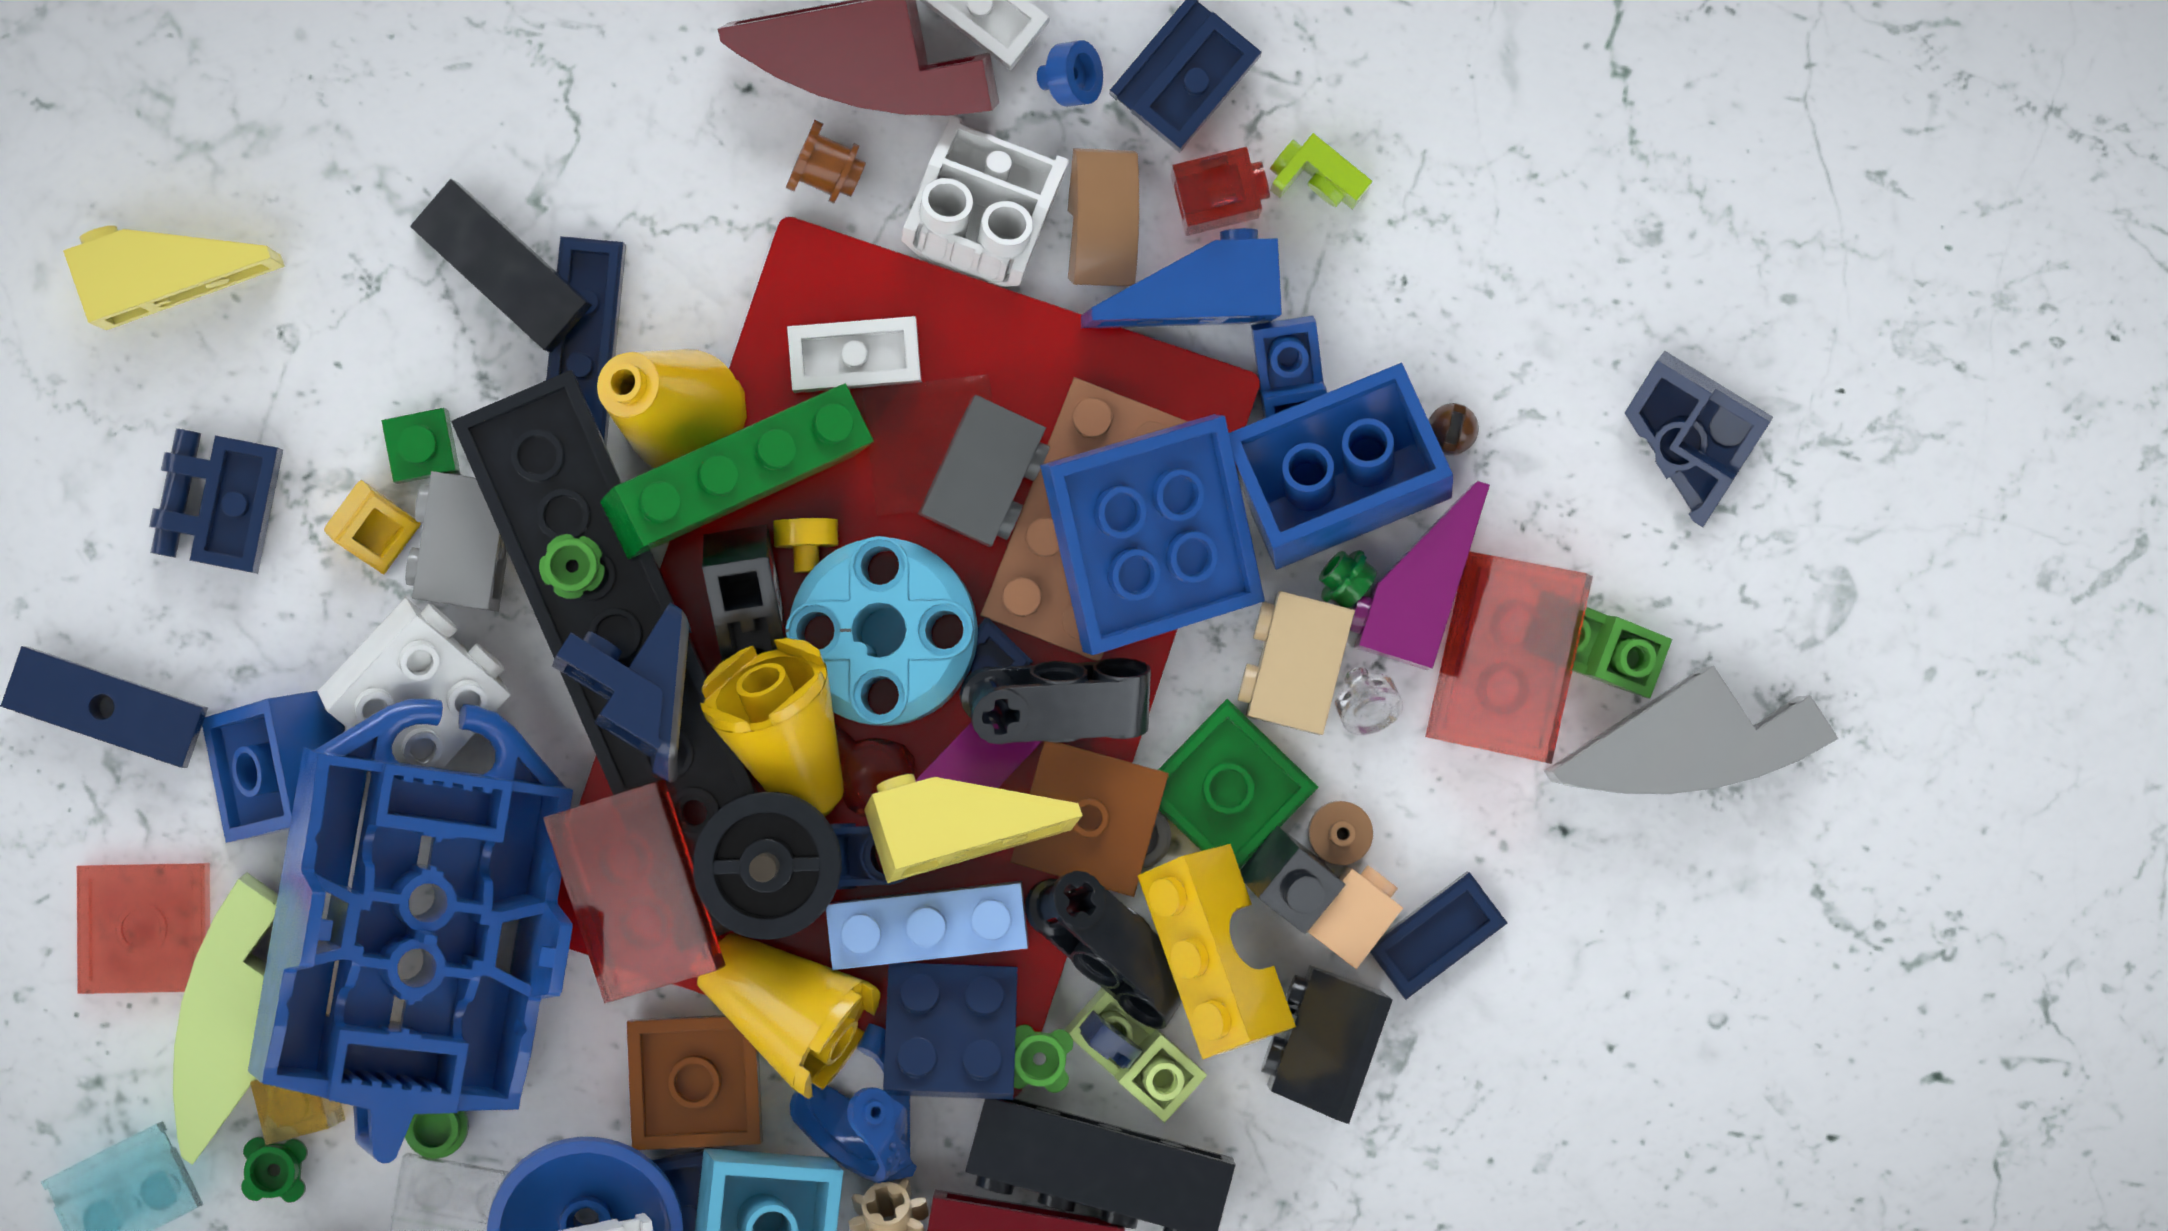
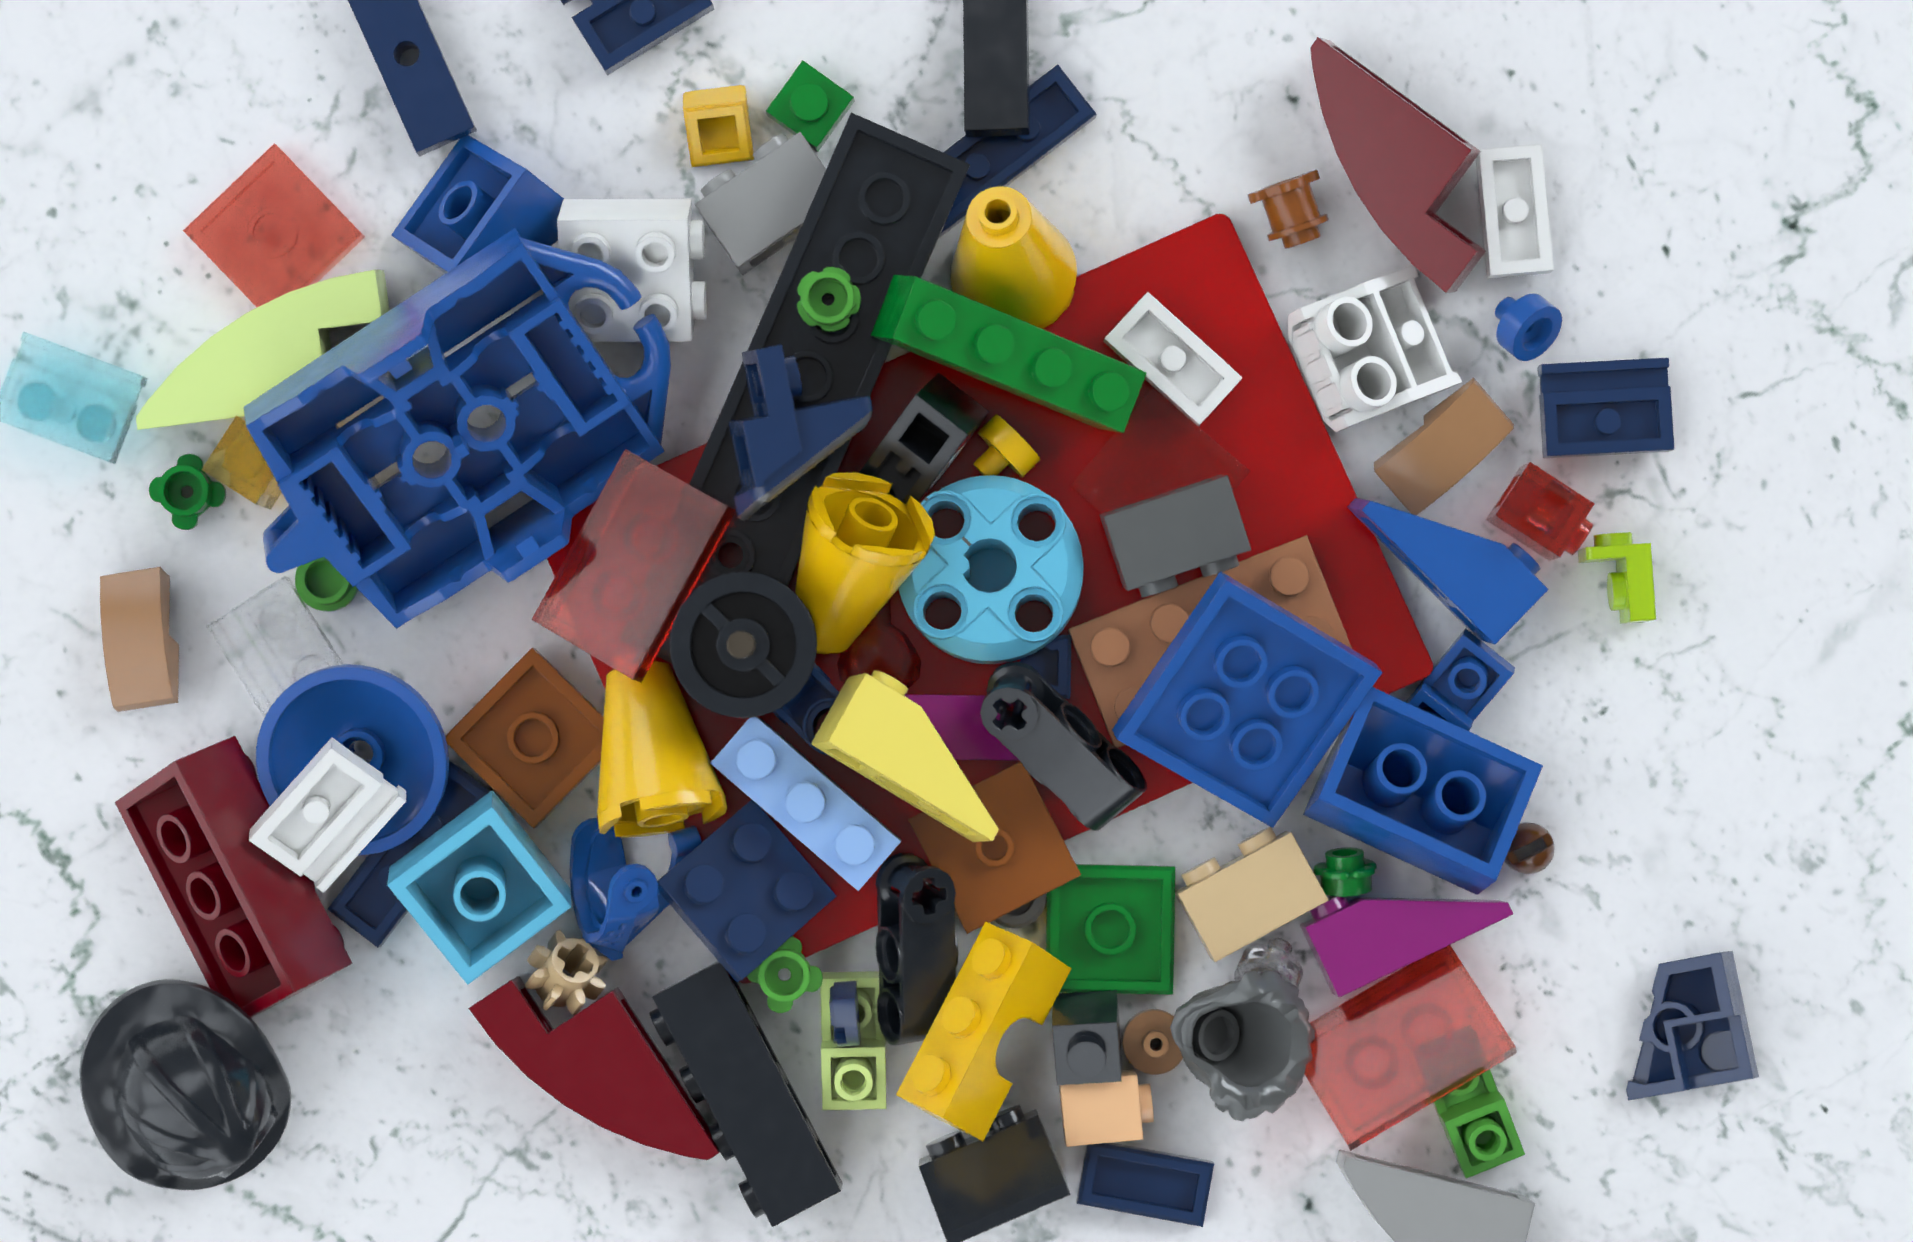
camera: 50 degrees right, 0 degrees up
(1402, 766) = (1246, 1042): none -> dark grey hair

